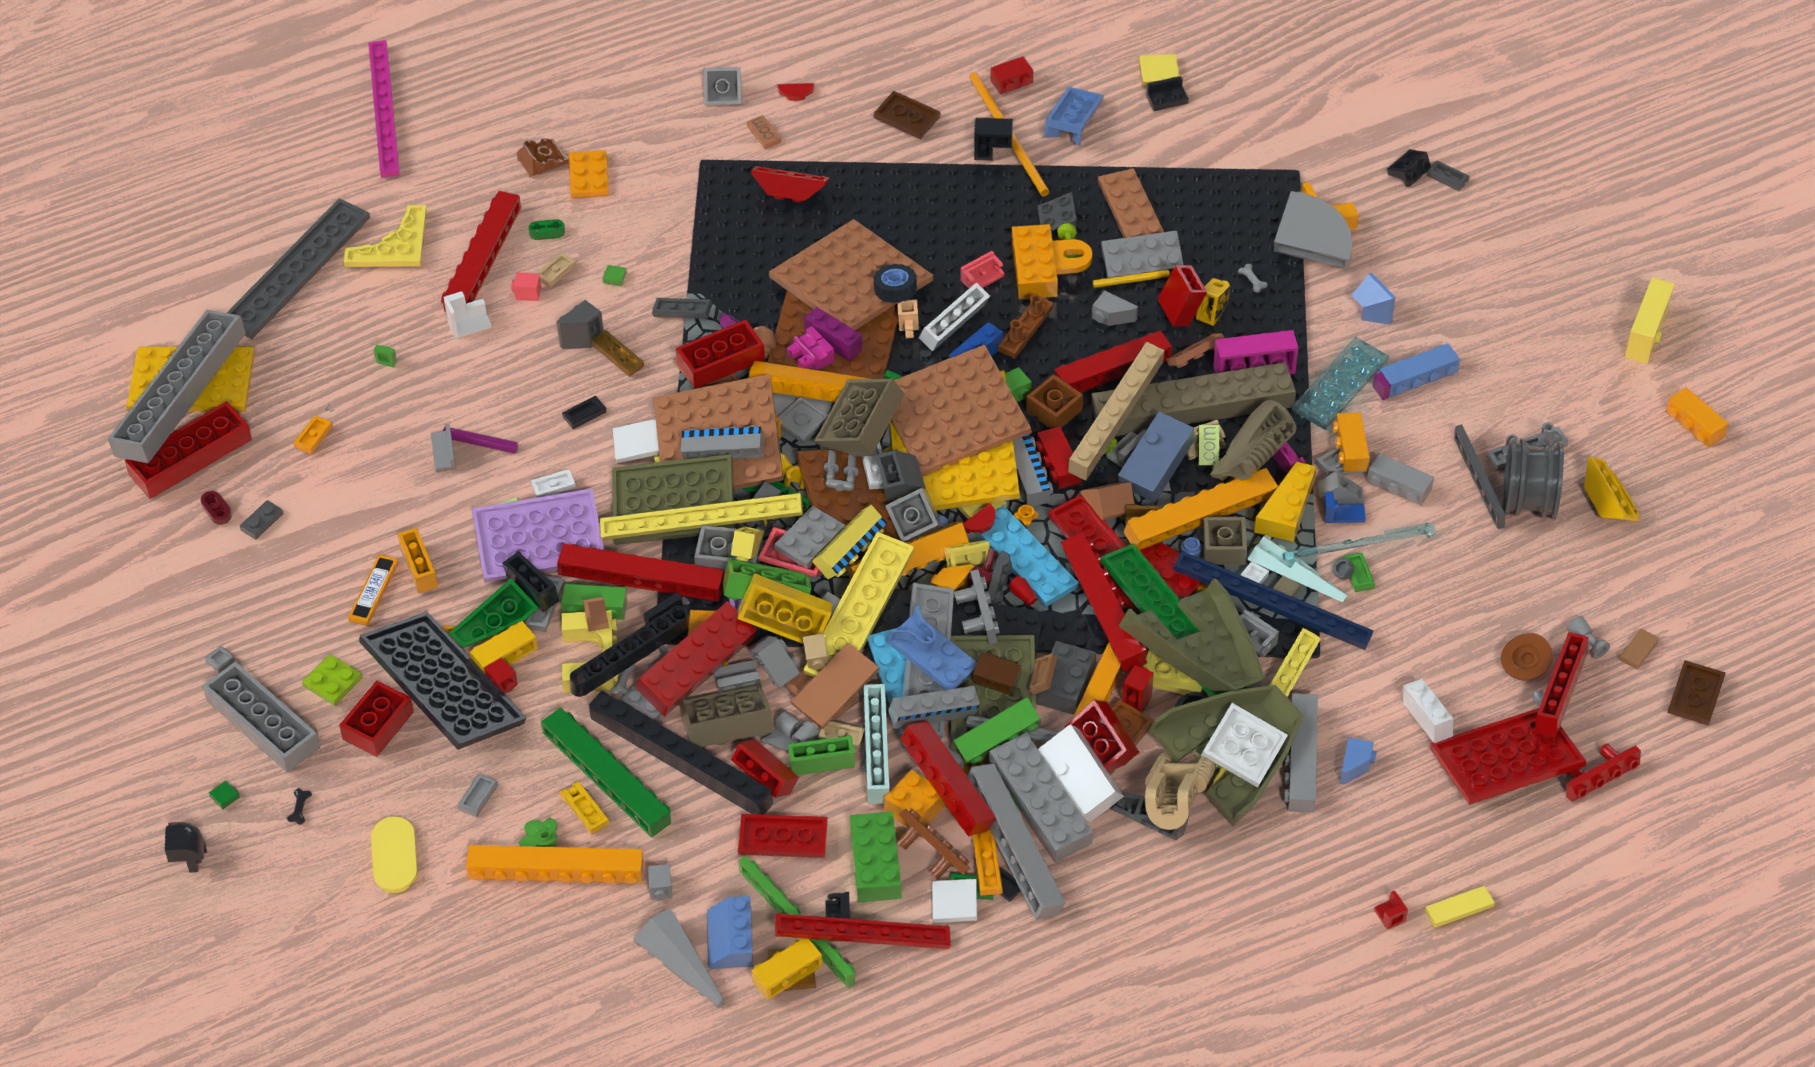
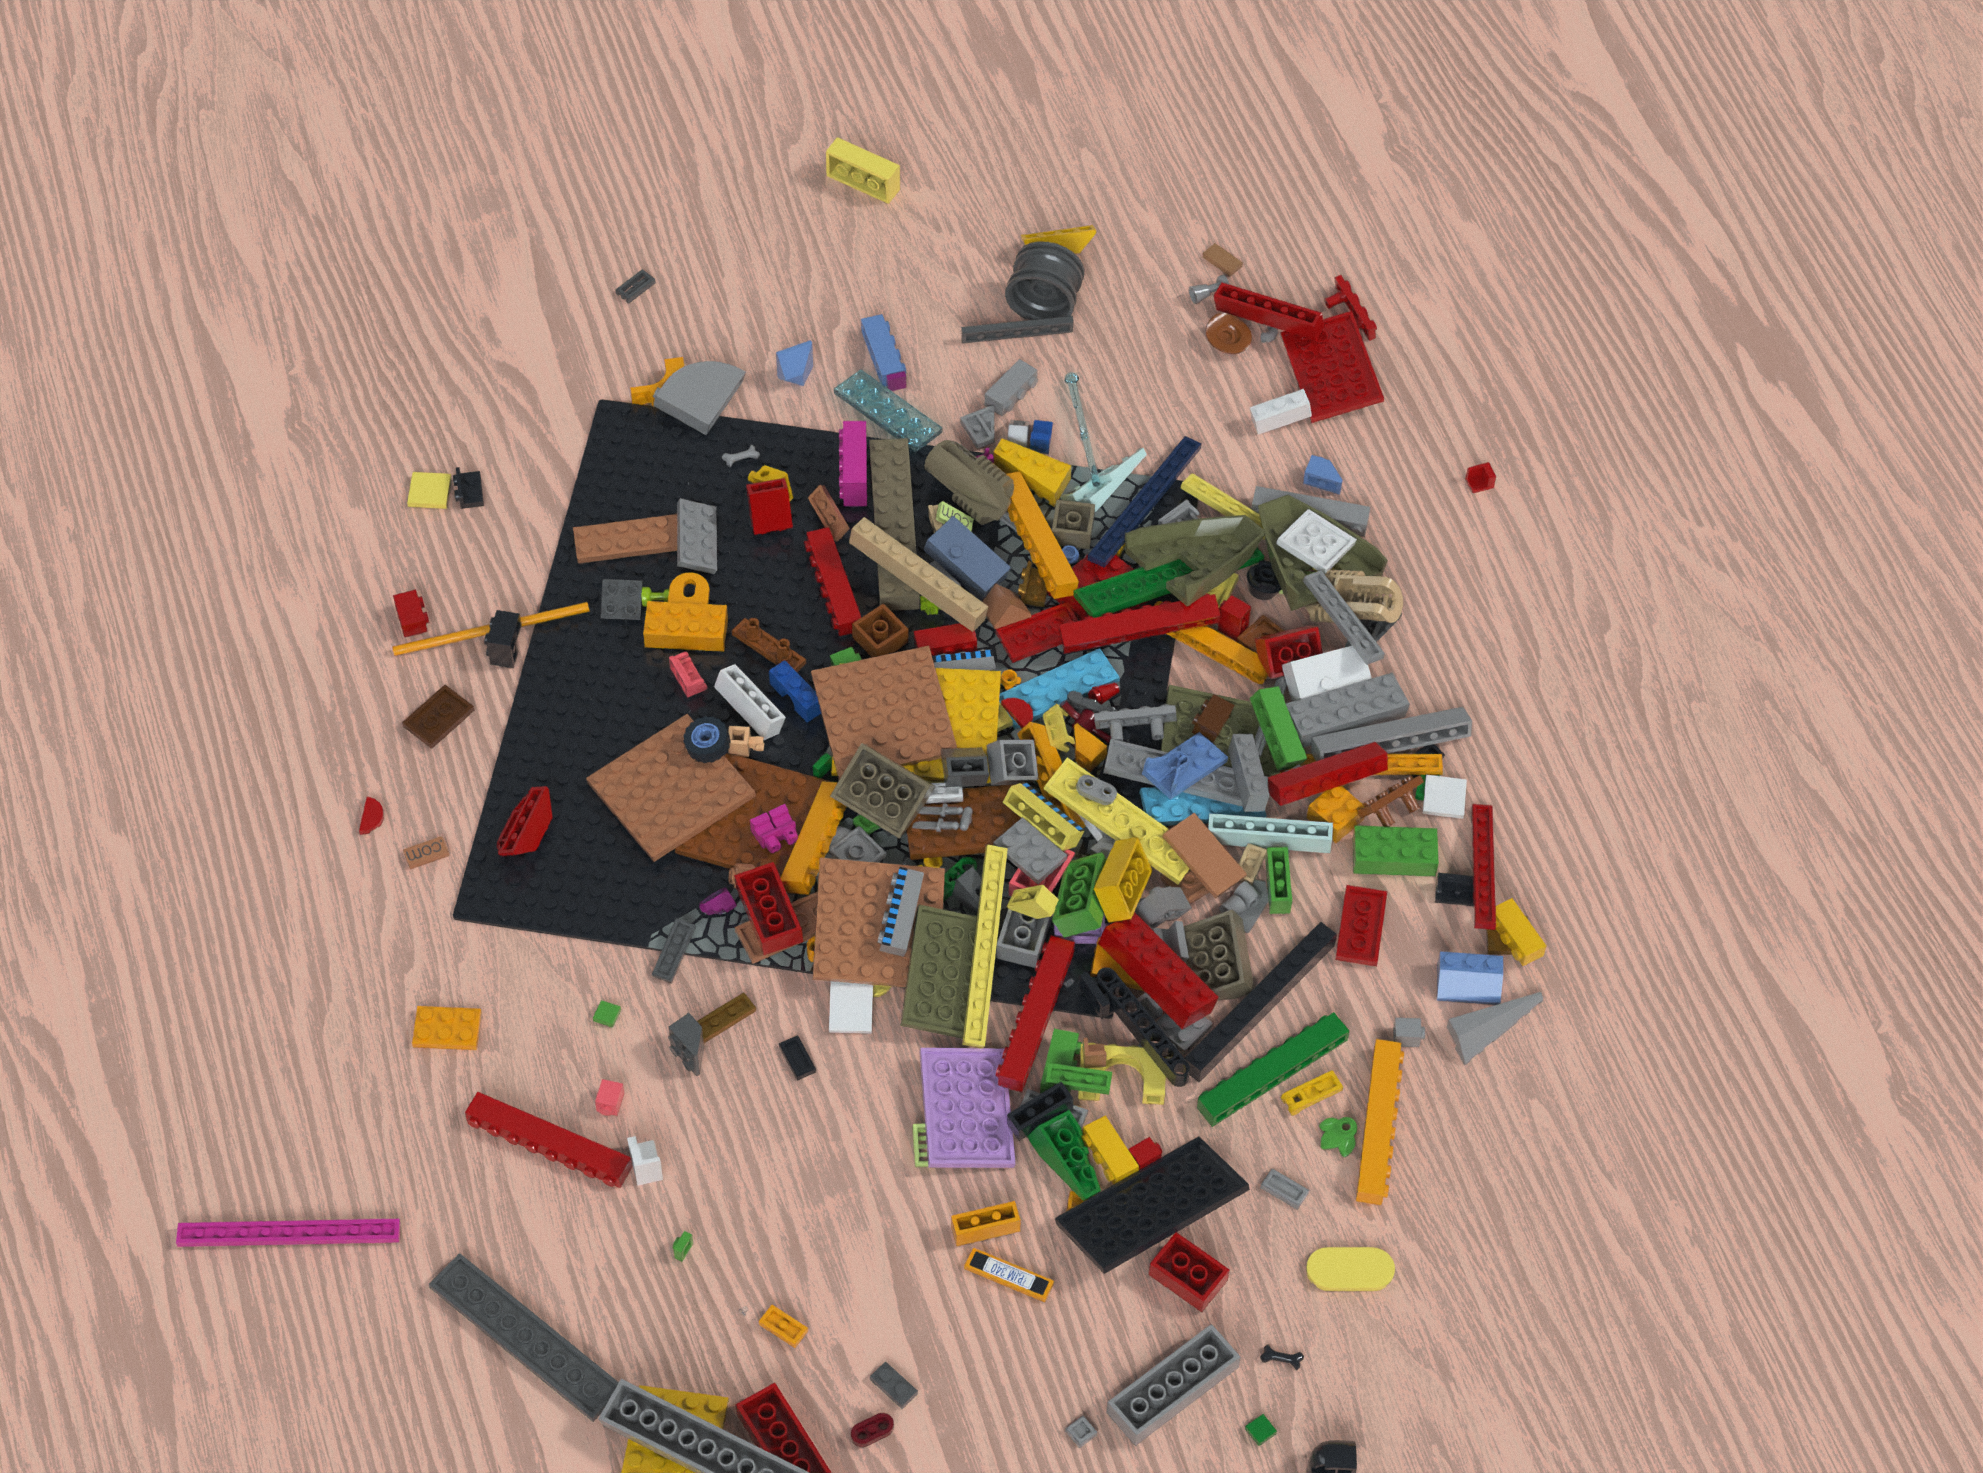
camera: 85 degrees left, 5 degrees up
(332, 679) = (1123, 1320): lime plate -> none
(397, 248) = (517, 1224): light yellow plate -> none
(443, 450) = (832, 1191): light grey panel -> none
(483, 440) = (819, 1160): magenta axle -> none
(541, 156) = (411, 1072): dark orange slope -> none
(546, 229) = (518, 1075): green beam -> none
(553, 484) = (895, 1091): white plate -> none
(556, 269) = (588, 1068): tan plate -> none
(568, 607) = (1079, 1078): none -> bright green plate
(722, 86) = (352, 882): light grey slope -> none
(765, 768) = (1287, 929): red brick -> none
(779, 902) = (1452, 926): bright green plate -> none
(815, 651) = (1170, 861): tan brick -> none
(840, 336) = (763, 799): magenta brick -> none
(882, 574) = (1096, 790): none -> light grey plate
(1043, 674) = (1215, 684): medium nougat tile -> none
(1070, 678) = (1207, 672): dark grey brick -> none
(1072, 113) = (481, 565): medium blue plate -> none
(1113, 310) = (762, 572): light grey slope -> none
(1131, 278) = (720, 553): yellow bar -> none
(1139, 768) = (1343, 617): none -> light grey plate
(1255, 572) = (1110, 511): white plate -> none
(1287, 586) = (1126, 492): dark tan tile -> none
(1343, 568) = (1107, 447): dark grey tile -> none
(1351, 442) = (969, 410): light orange brick -> none
(1361, 577) = (1109, 439): bright green tile -> none
(1410, 166) = (617, 310): black bracket -> none
(1459, 906) = (1477, 432): light yellow tile -> none
(1549, 433) = (989, 290): light grey plate -> none
(1696, 692) = (1276, 230): reddish brown plate -> none
(1697, 417) = (975, 165): light orange brick -> none

